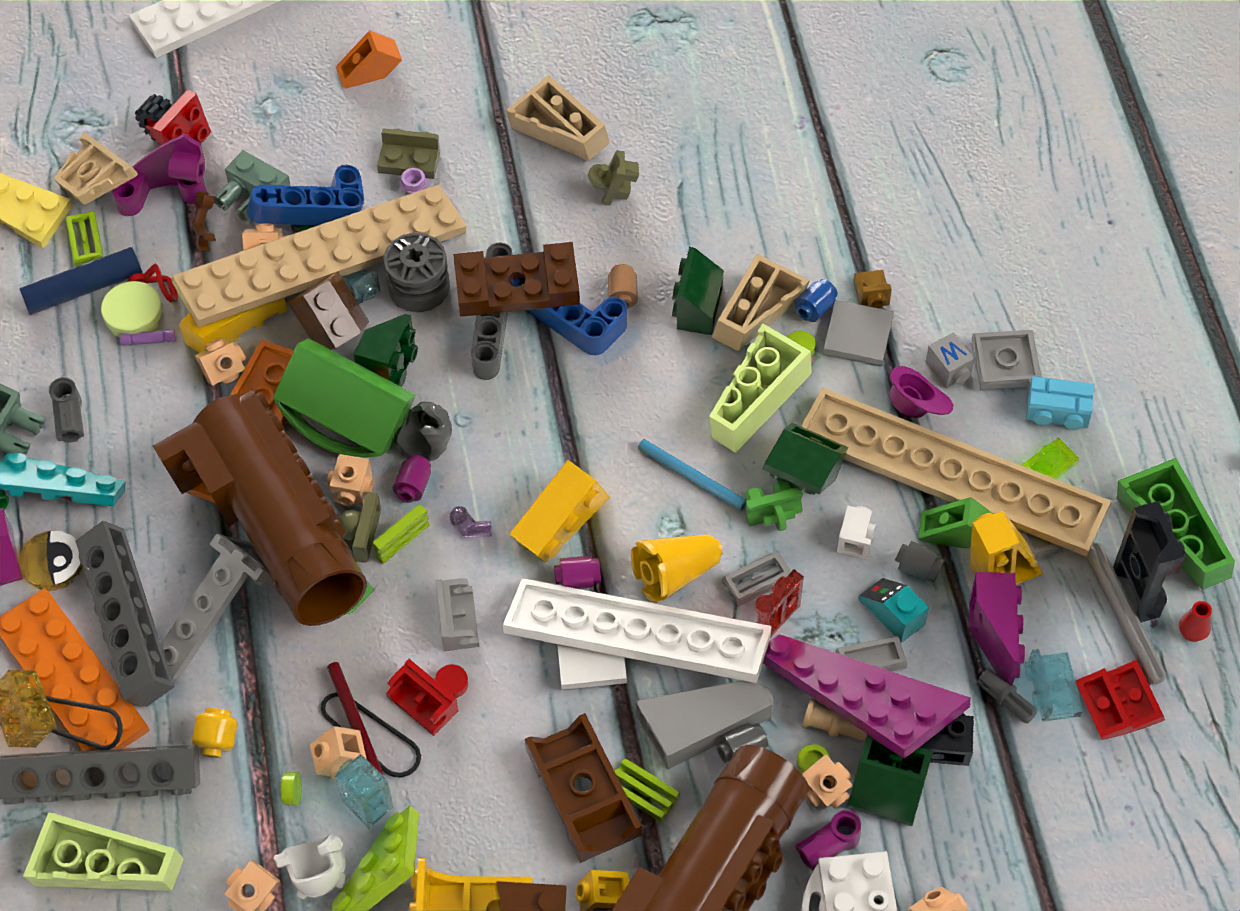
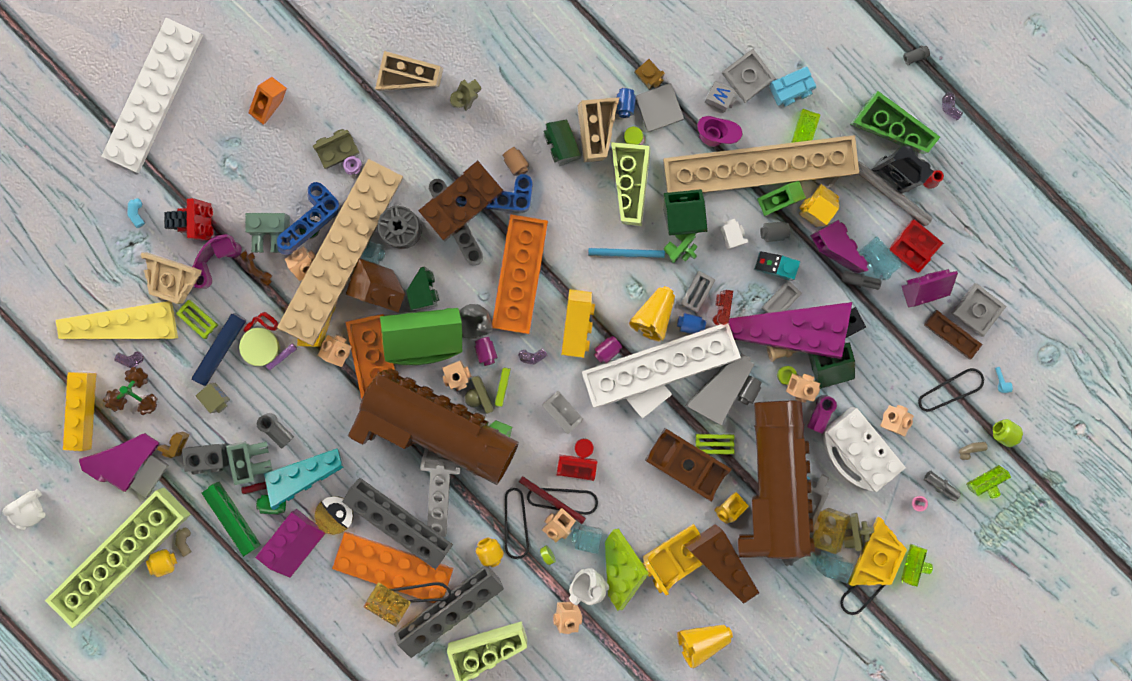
camera: 30 degrees left, 30 degrees up
(25, 330) = (213, 398): none -> olive brick
(112, 89) = (133, 206): none -> medium azure arm
(267, 716) = (525, 524): none -> black piece
(527, 417) = (519, 274): none -> orange plate
(718, 603) = (691, 323): none -> blue brick
(1102, 749) = (929, 287): none -> magenta slope
(1106, 856) = (953, 334): none -> reddish brown tile
(1166, 841) = (978, 309): none -> light grey plate

